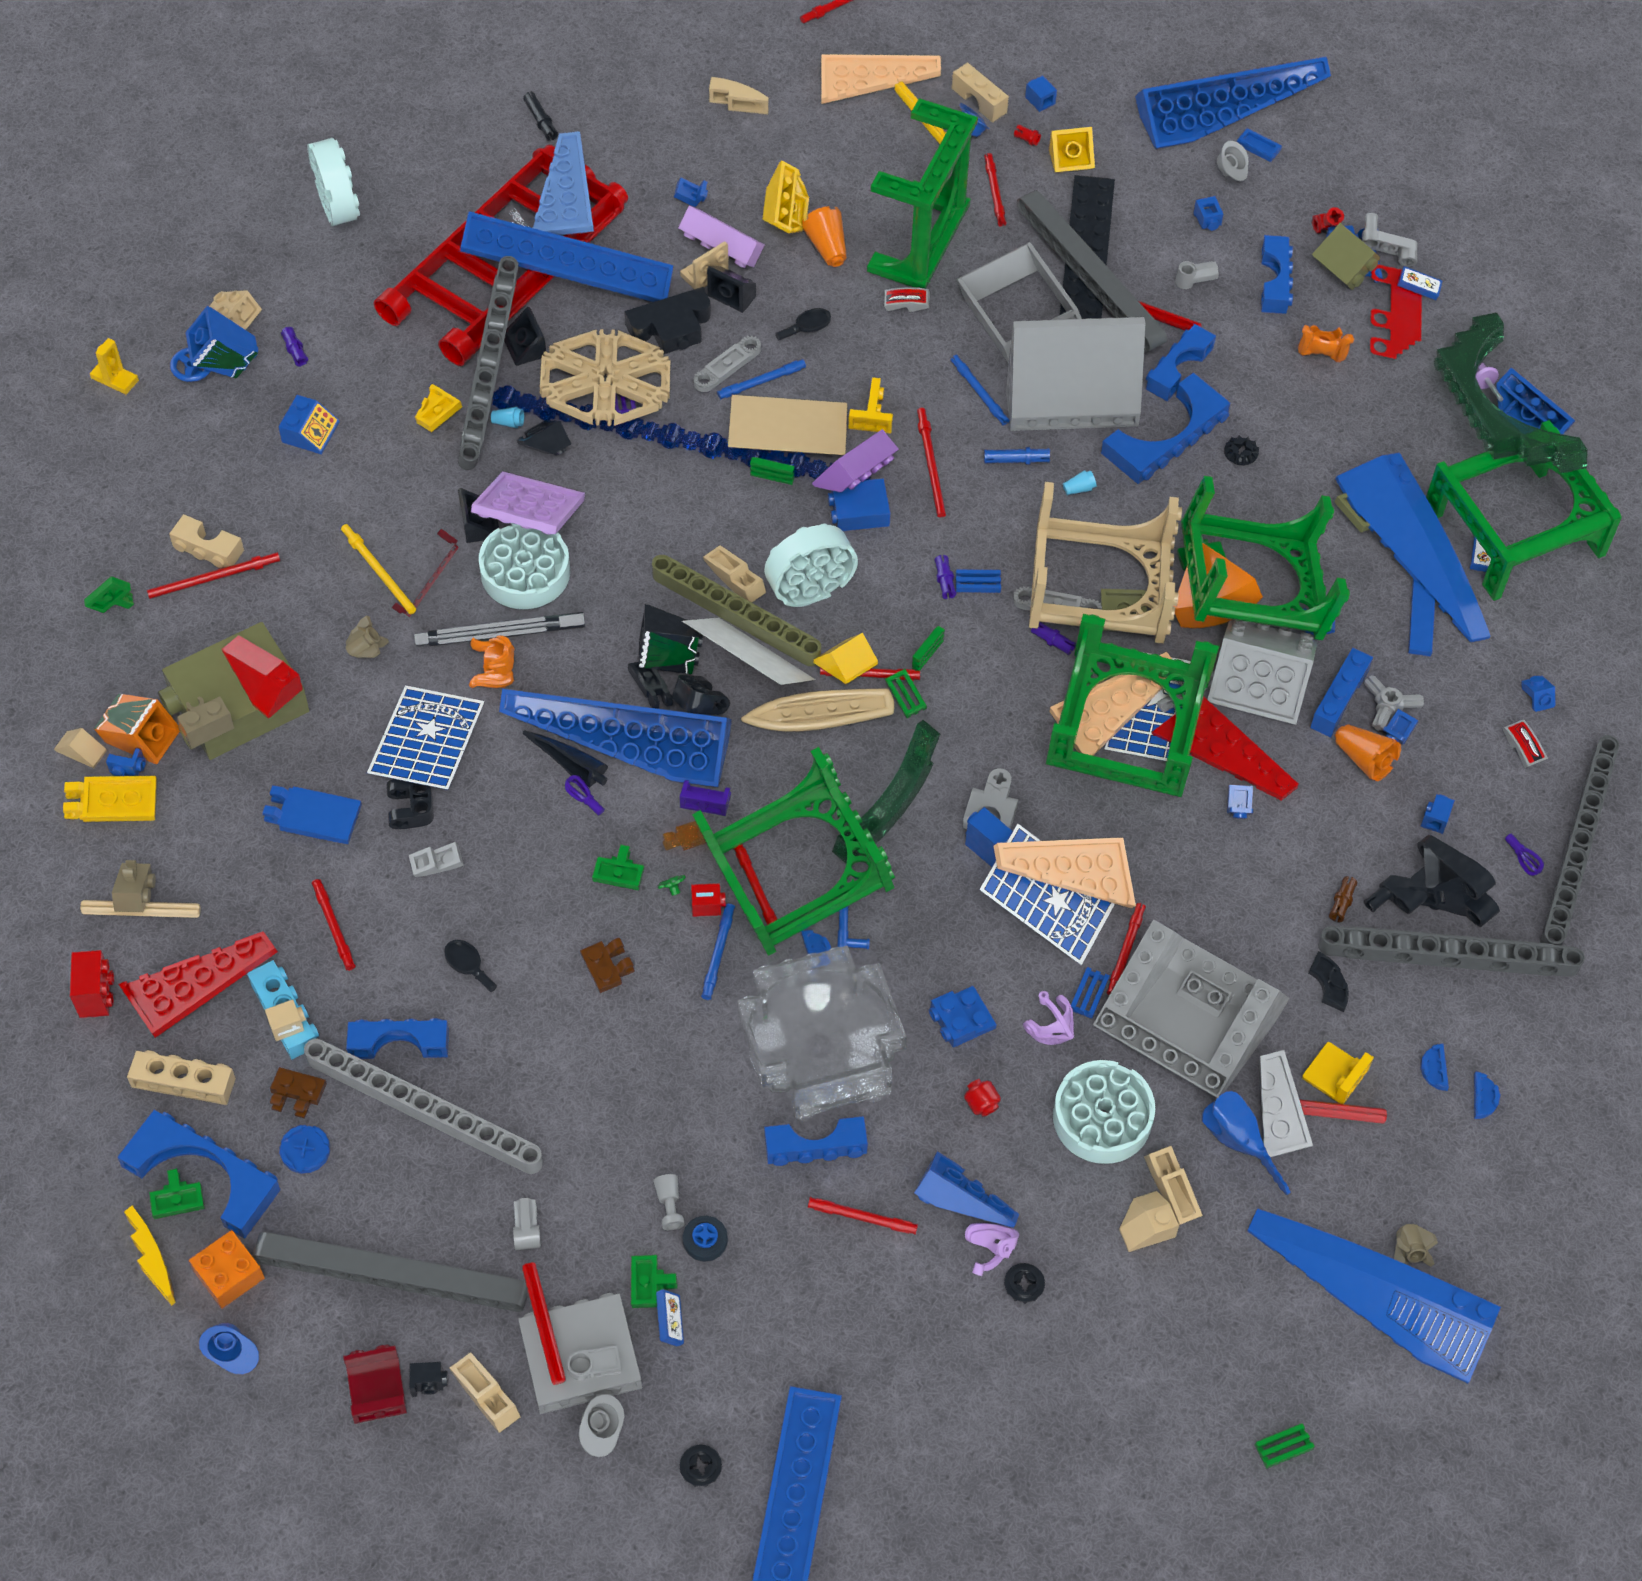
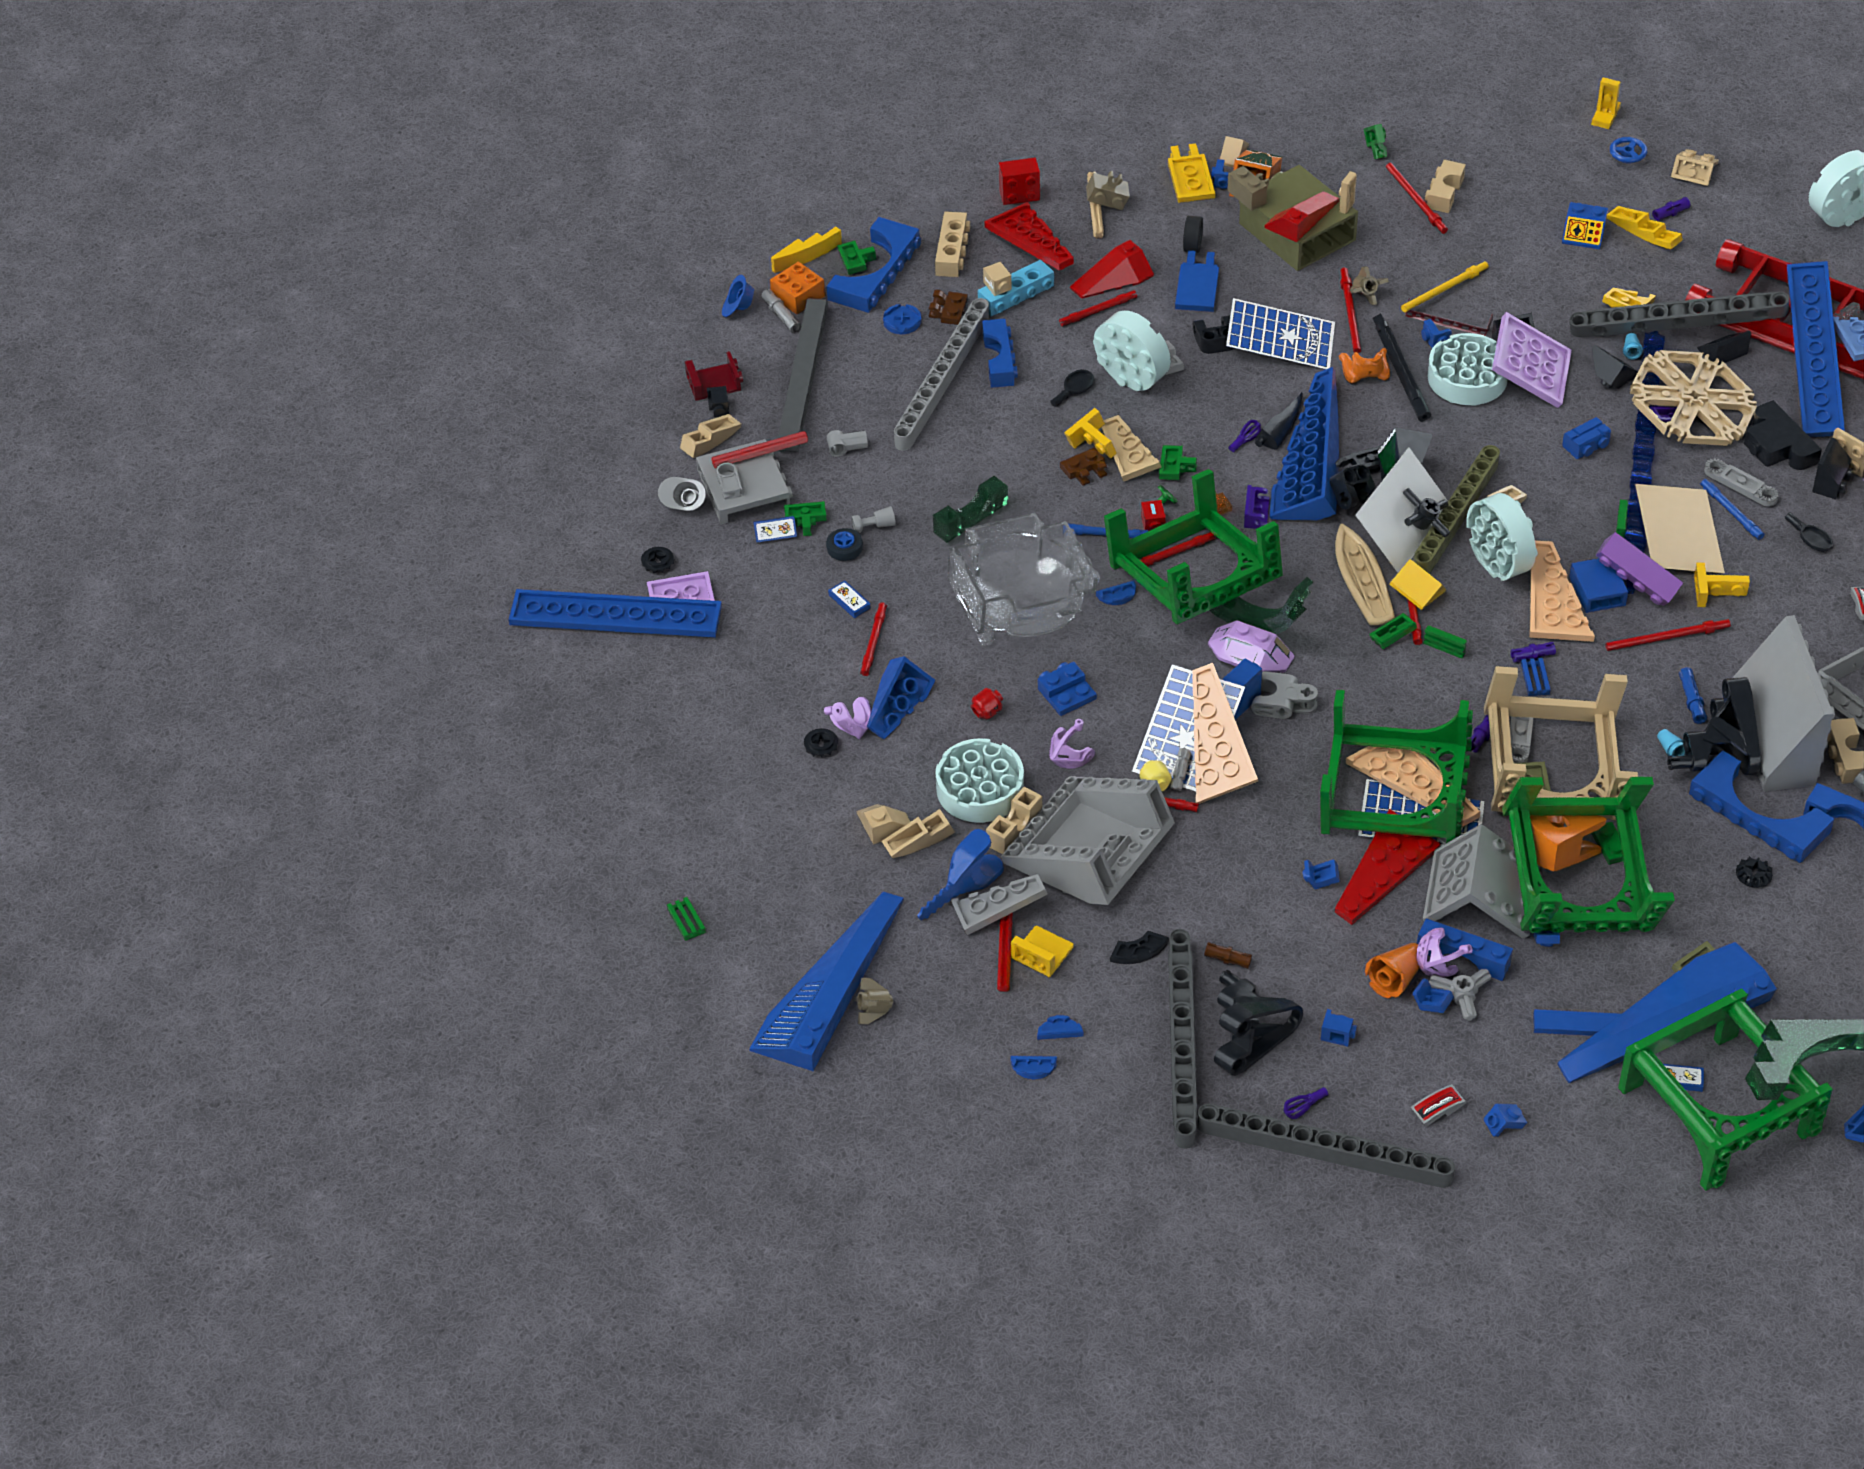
camera: 90 degrees right, 10 degrees down
(220, 344) = (1642, 153): blue slope -> none
(237, 802) = (1193, 234): none -> black tyre
(248, 618) = (1347, 192): none -> tan plate
(261, 1294) = (777, 306): none -> light grey pin
(277, 899) = (1120, 267): none -> red wedge
(323, 372) = (1644, 228): none -> yellow slope
(348, 664) = (1346, 284): none -> red bar
(456, 591) = (1432, 335): none -> blue bracket
(456, 881) = (1131, 350): none -> light aqua brick
(569, 947) = (1087, 430): none -> yellow bracket
(591, 915) = (1132, 456): none -> tan wing
(645, 479) = (1586, 438): none -> blue brick
(685, 1105) = (987, 500): none -> clear green arch
(760, 630) = (1426, 513): none -> black bar
(760, 1433) = (690, 586): none -> lavender wing
(786, 1146) = (940, 619): blue arch -> none
(794, 1239) = (849, 599): none -> tile
(843, 939) = (1128, 609): blue piece -> none
(891, 547) = (1553, 601): none -> light nougat wing
(920, 832) = (1240, 641): none -> lavender wedge
(1090, 442) = (1723, 732): none -> black connector
(1094, 913) = (1180, 769): none -> light grey axle
(1096, 976) = (1101, 771): blue tile -> none
(1103, 938) = (1156, 771): none -> light yellow head
(1178, 1093) = (1006, 830): none -> tan arch
(1362, 714) = (1431, 942): none -> lavender helmet

